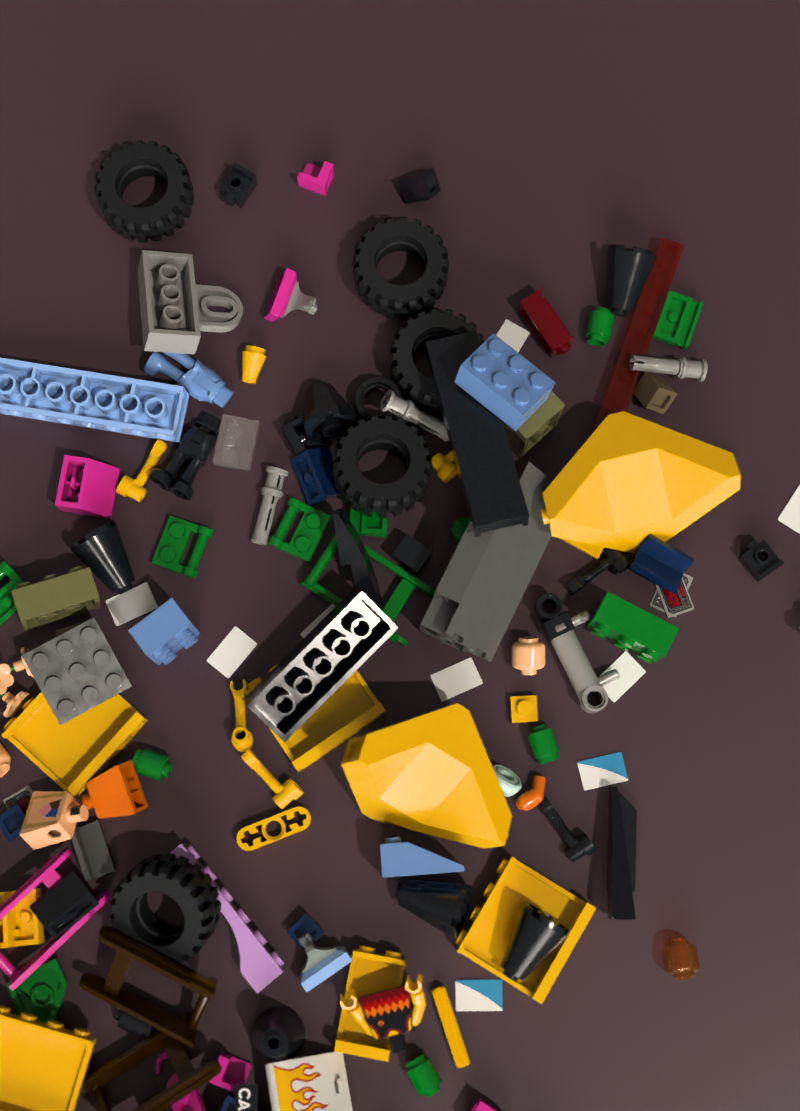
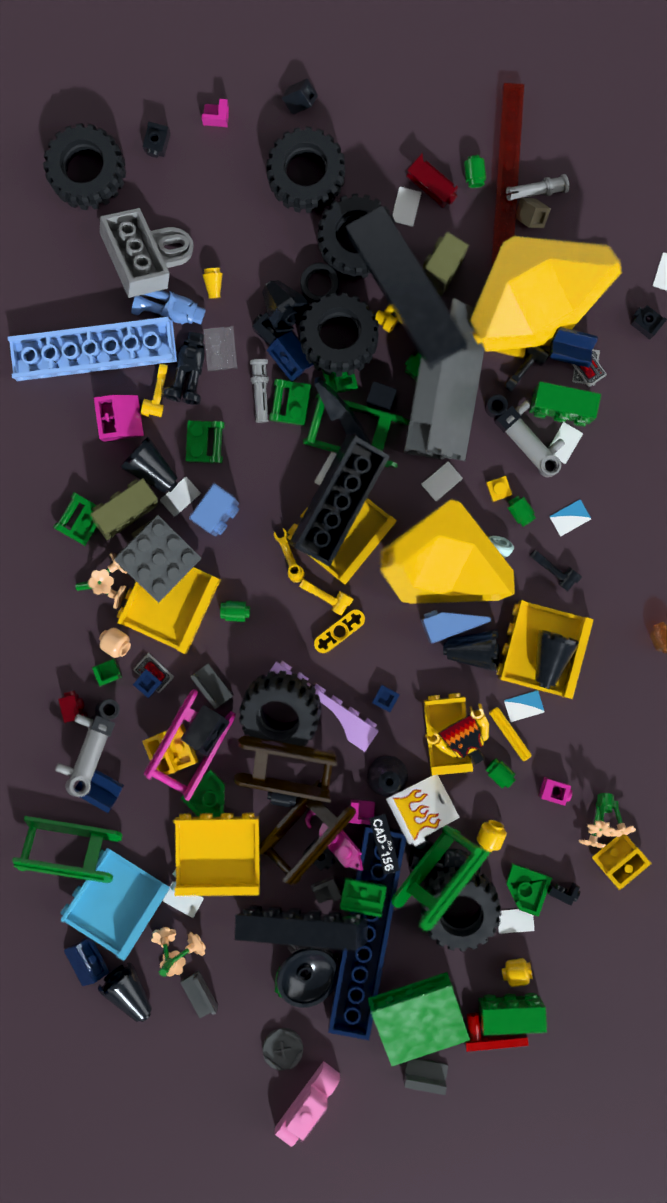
camera: 15 degrees left, 10 degrees up
(51, 818) = (175, 671): light nougat torso -> none
(115, 792) = (215, 639): orange torso -> none
(231, 652) = (267, 510): white sticker -> none
(288, 297) = (224, 220): dark pink piece -> none
(321, 962) = (403, 716): light blue piece -> none
(406, 410) = (346, 285): light grey pin -> none
(504, 382) = (417, 241): medium blue brick -> none
(528, 655) = (491, 447): light nougat head -> none
(533, 796) = (524, 551): orange arm -> none
(621, 856) = (601, 576): black wedge -> none
(626, 276) = (485, 124): black cone -> none
(677, 320) = (535, 148): green plate -> none

